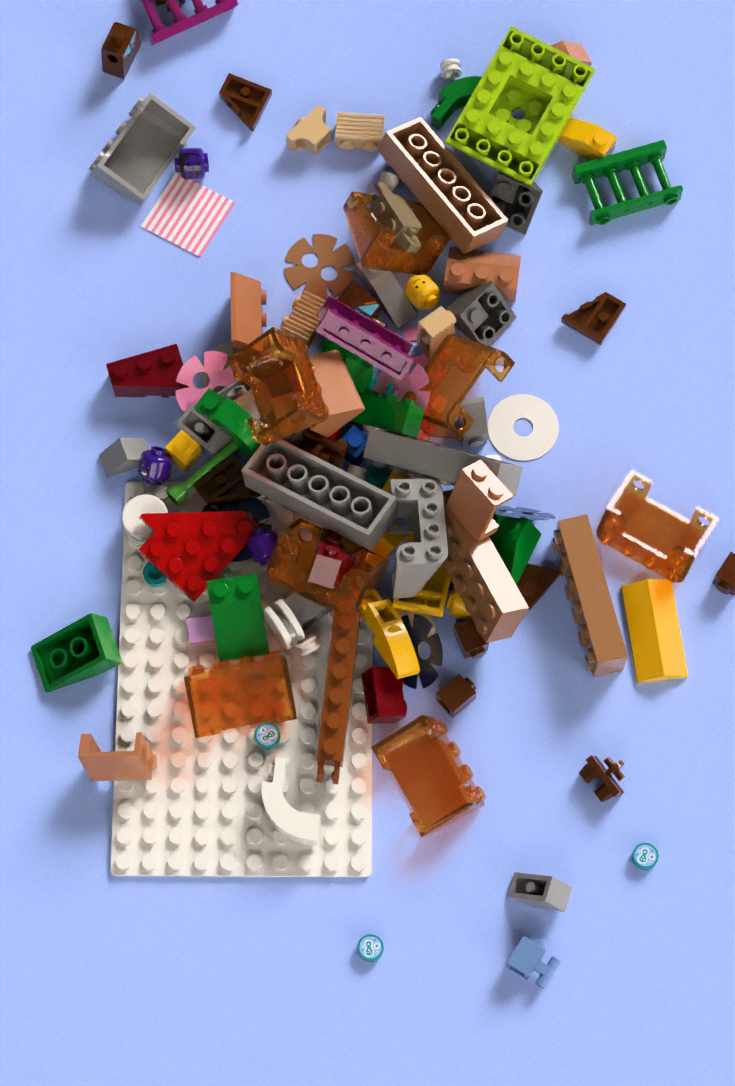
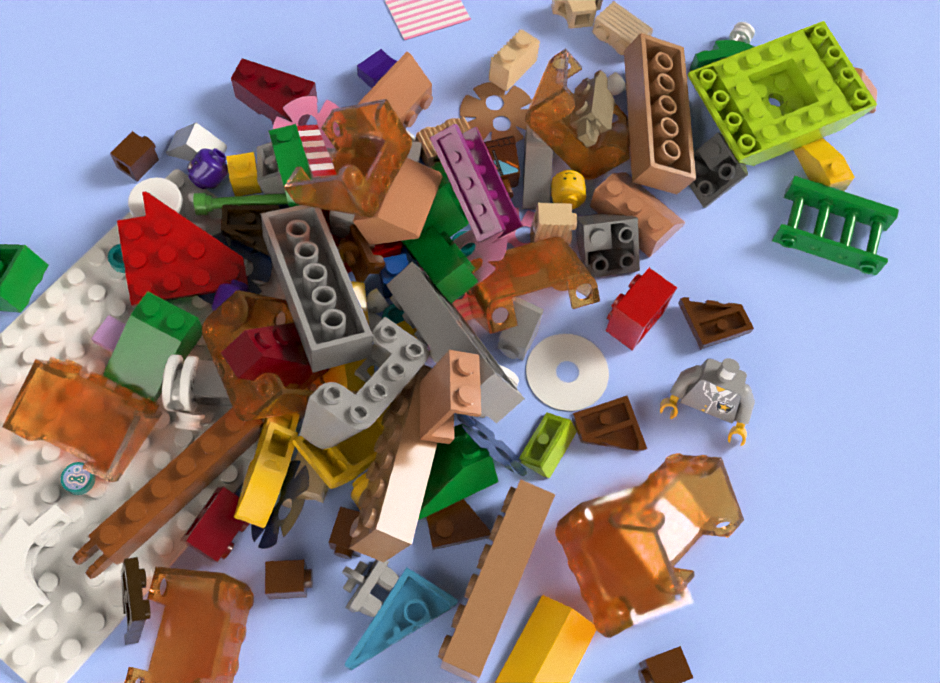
camera: 30 degrees right, 5 degrees down
(90, 495) = (135, 155): none -> reddish brown brick
(206, 297) = (375, 67): none -> dark purple piece
(247, 401) = (316, 151): none -> sticker
(300, 216) = (513, 60): none -> tan brick
(375, 776) = (134, 606): none -> dark brown wing
(506, 661) = (362, 599): none -> light grey hips
(541, 347) = (639, 308): none -> red brick
(545, 657) = (405, 610): none -> dark azure wing
(549, 486) = (548, 444): none -> lime slope
(581, 443) = (610, 425): none -> reddish brown wing
(634, 368) = (715, 390): none -> light grey torso
(665, 468) = (671, 513): none -> clear orange windscreen

